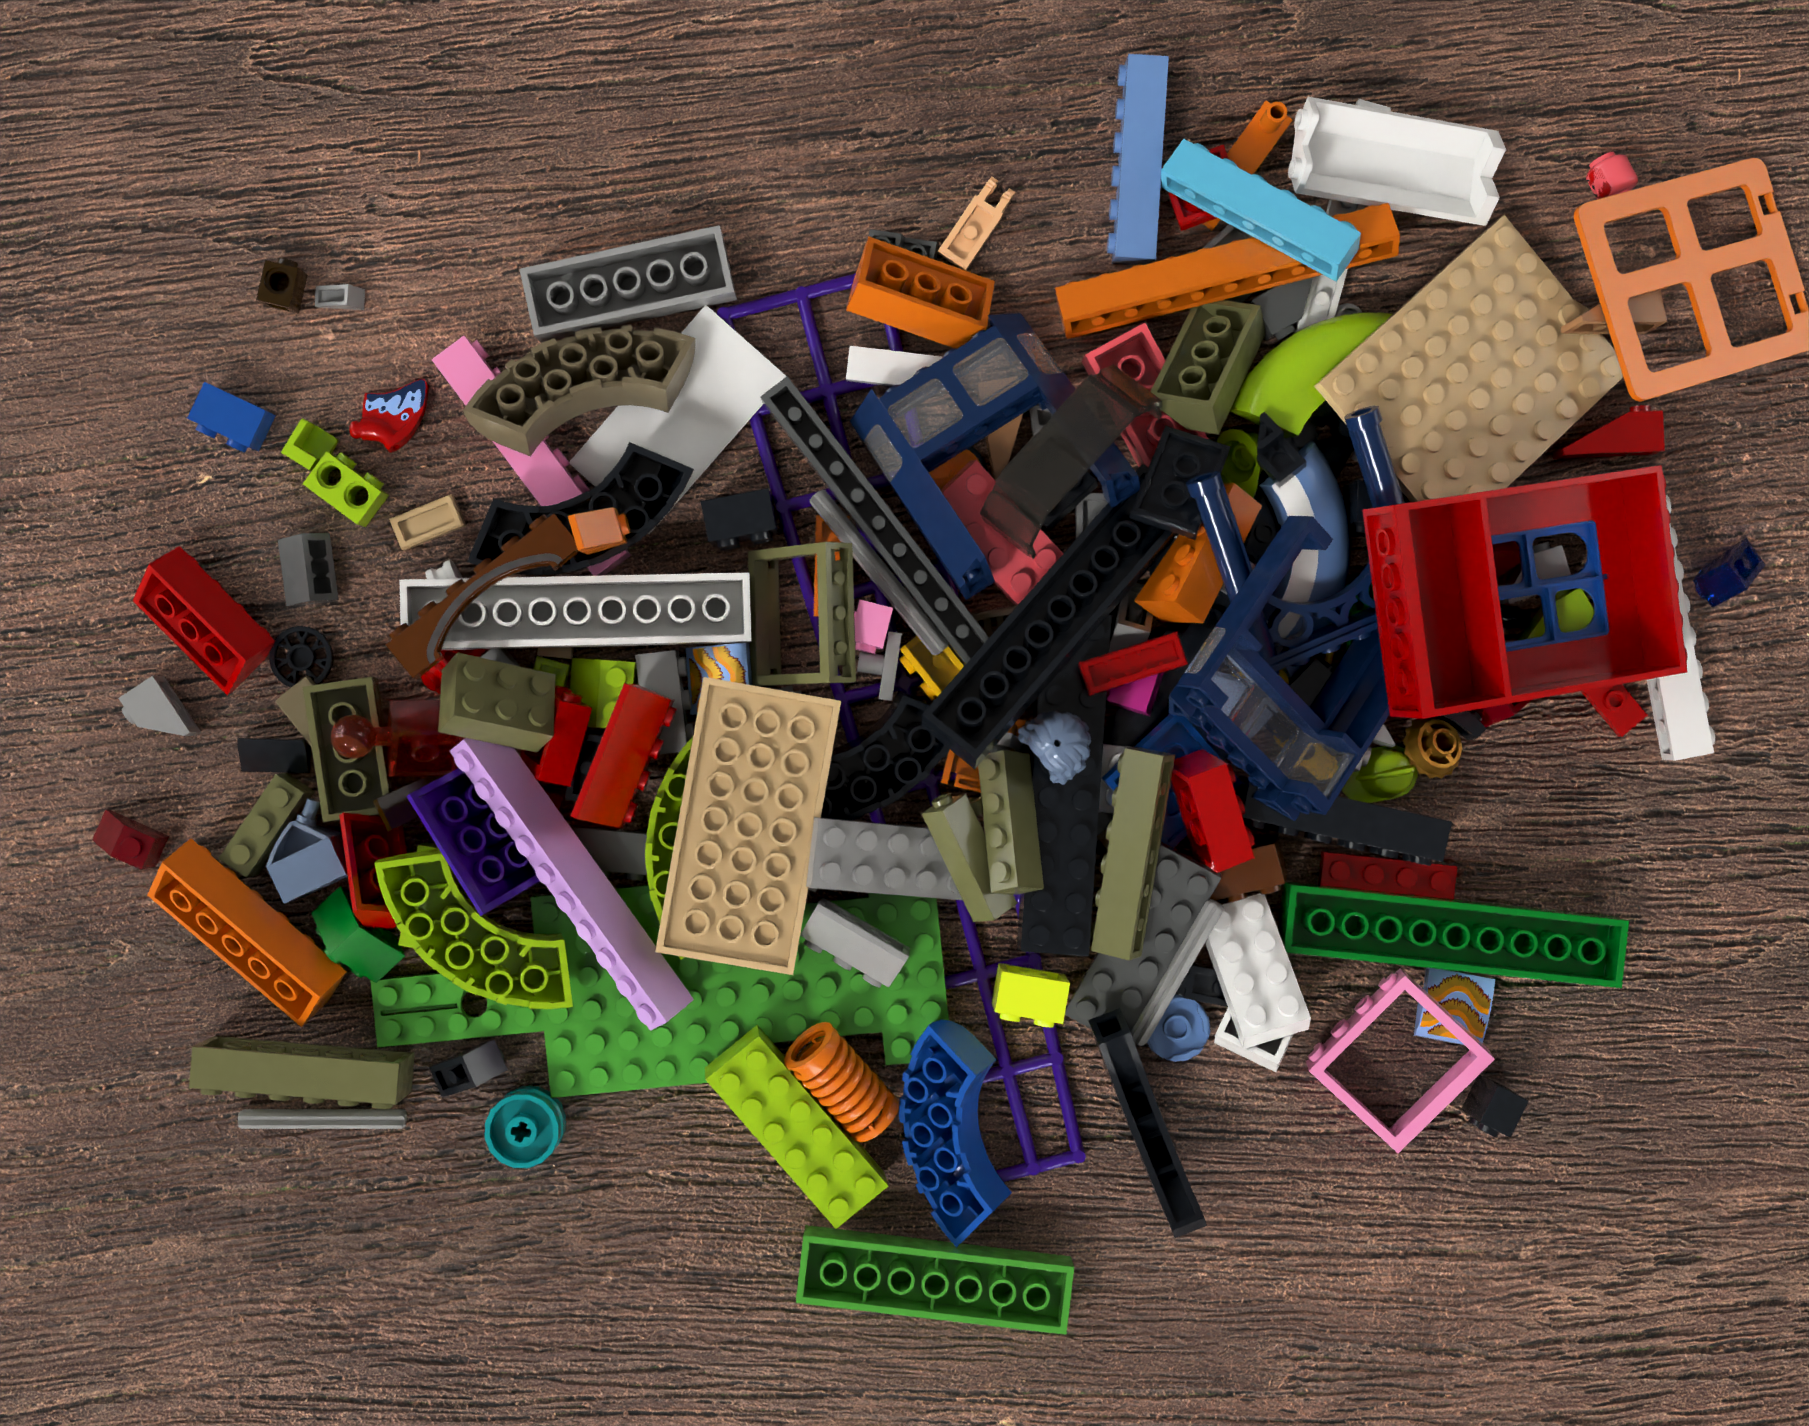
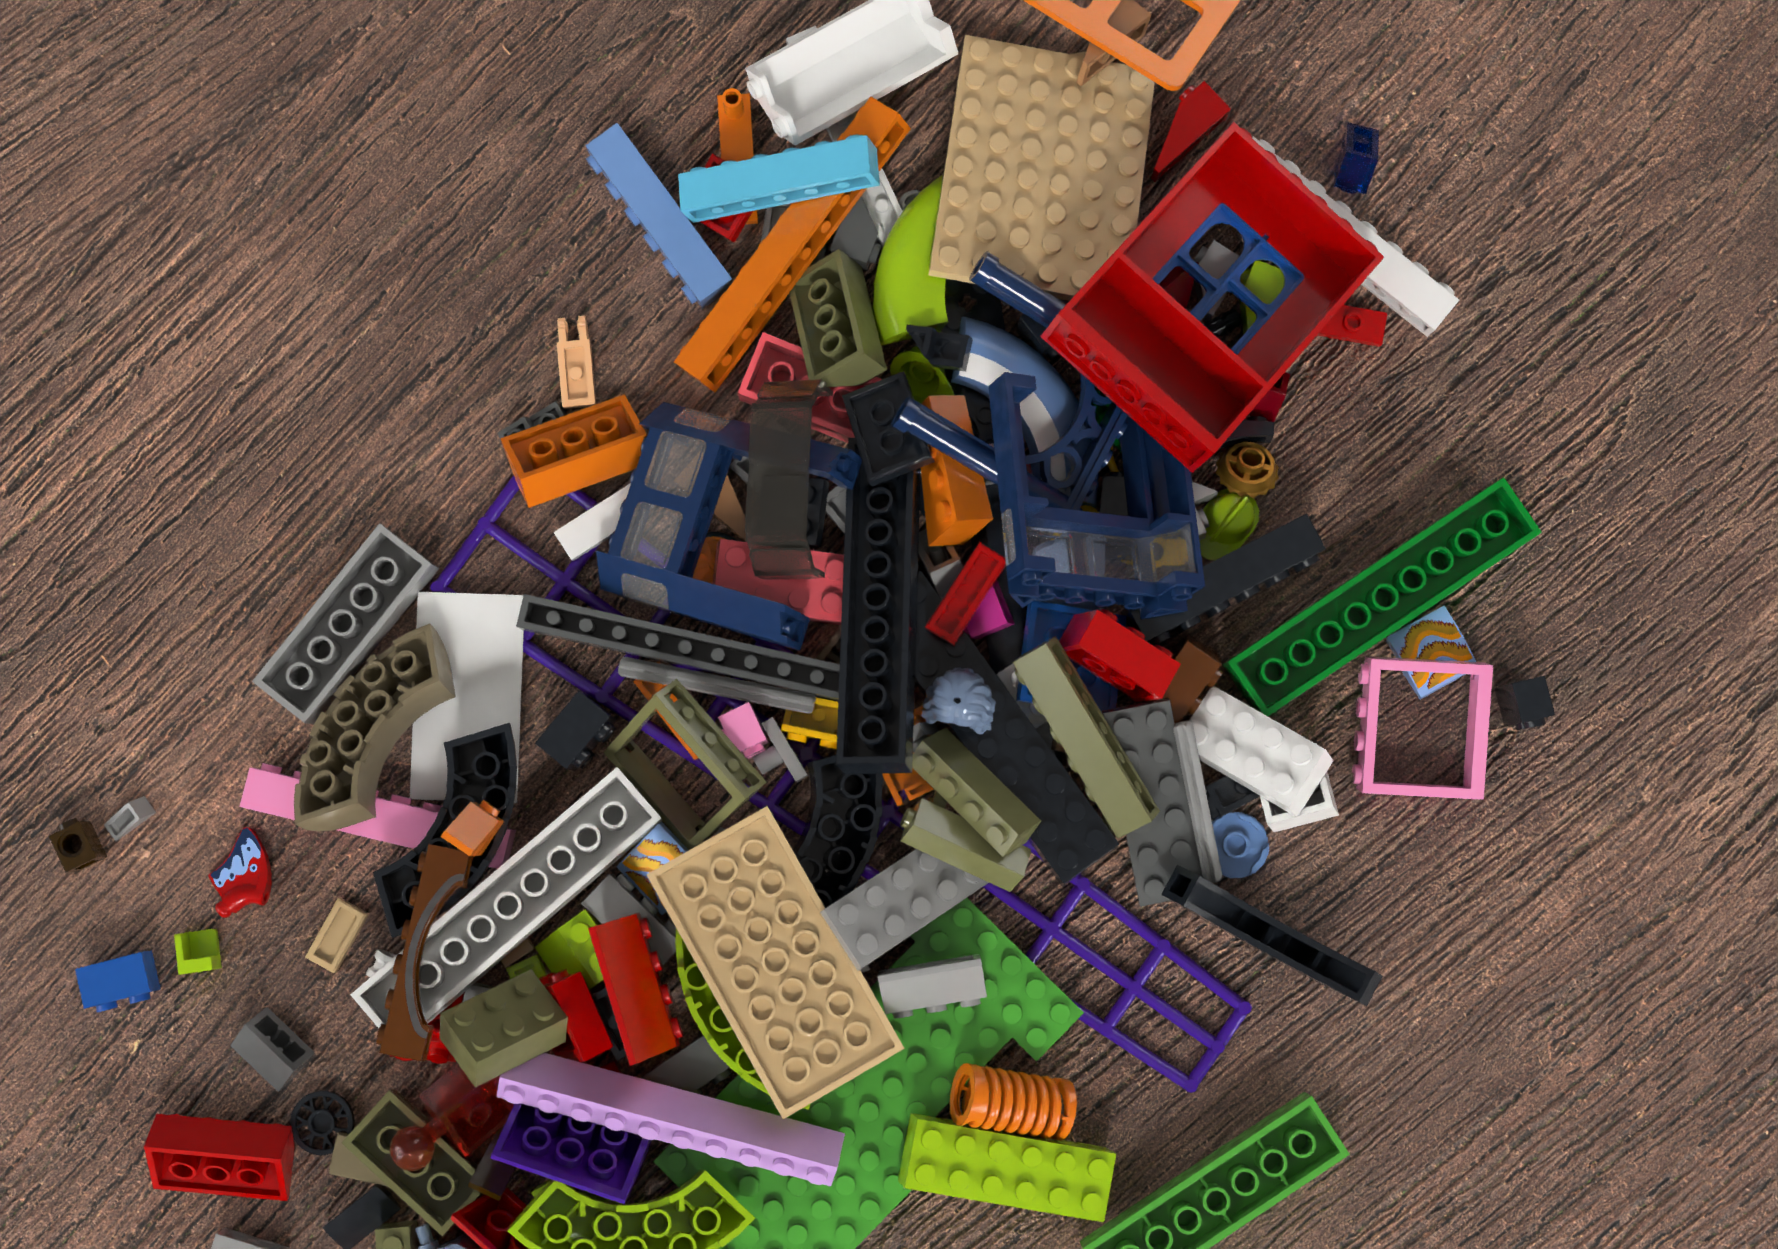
camera: 40 degrees left, 5 degrees down
(343, 493) = (253, 966): lime brick -> none
(944, 1129) = (1123, 1073): blue brick -> none
(1030, 995) = (1100, 912): neon yellow brick -> none
(1387, 875) = (1296, 594): red plate -> none

